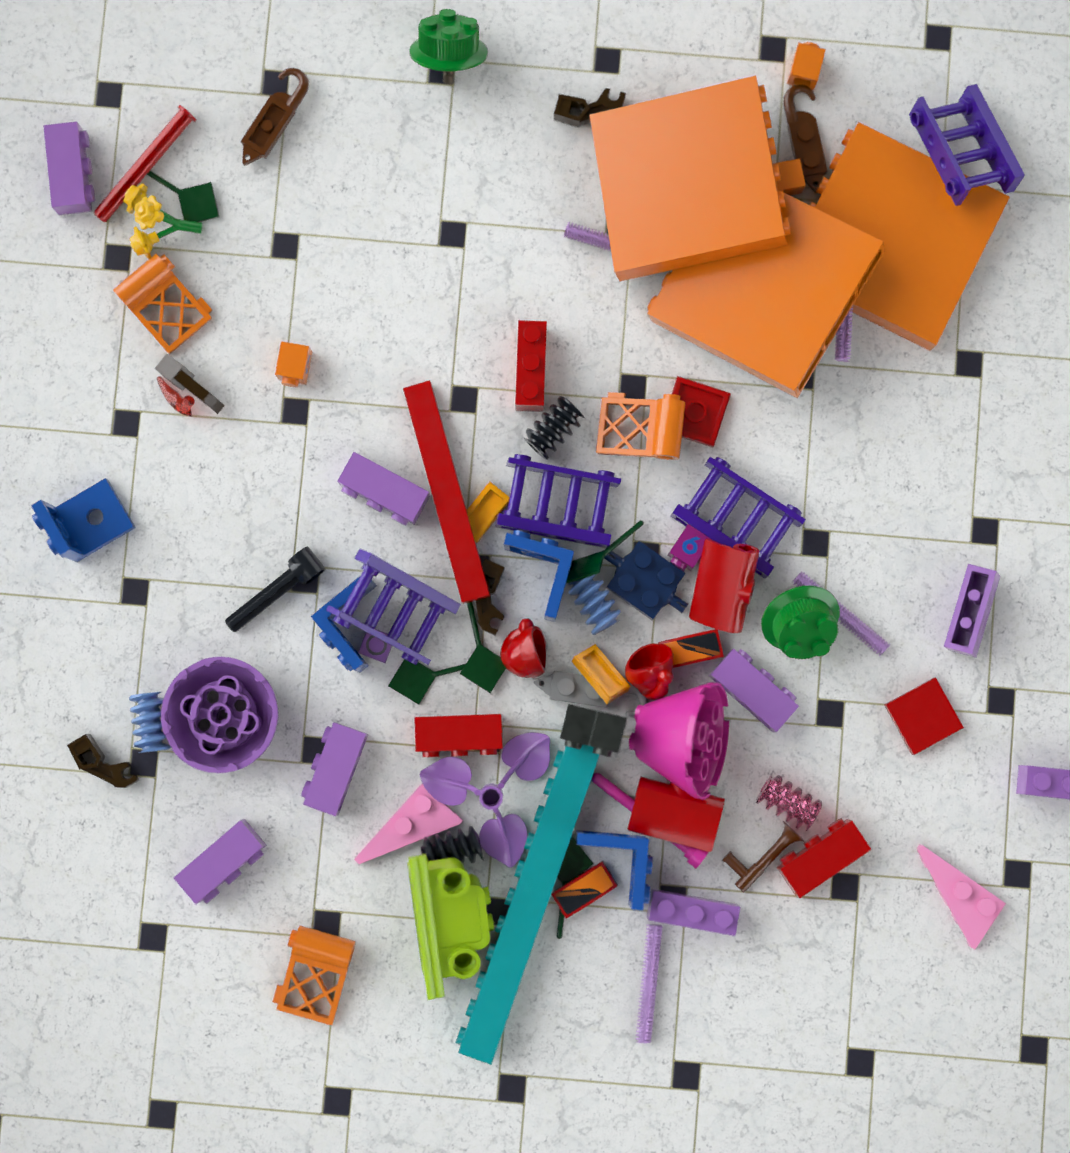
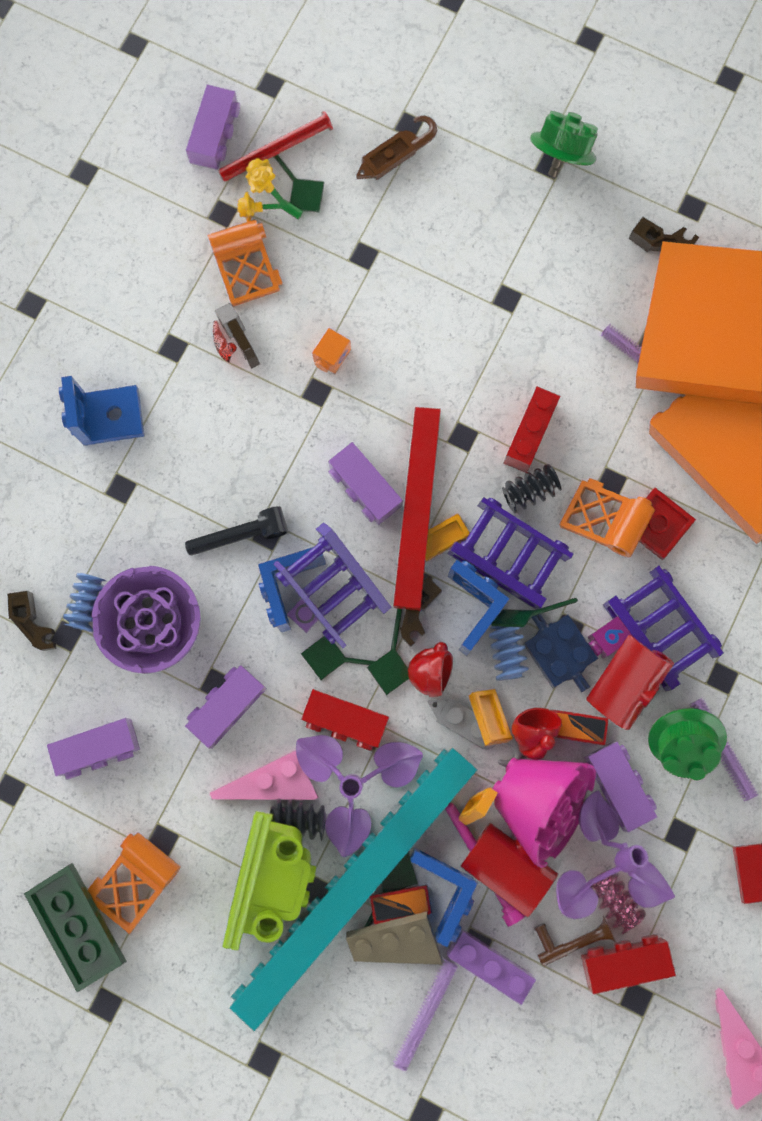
camera: 25 degrees right, 5 degrees down
(276, 1040) = (75, 927): none -> dark green plate
(593, 729) = (466, 763): pearl dark grey brick -> none
(594, 926) = (396, 941): none -> dark tan wing
(621, 766) = (477, 806): none -> light orange tile
(813, 773) = (647, 884): none -> medium lavender plant

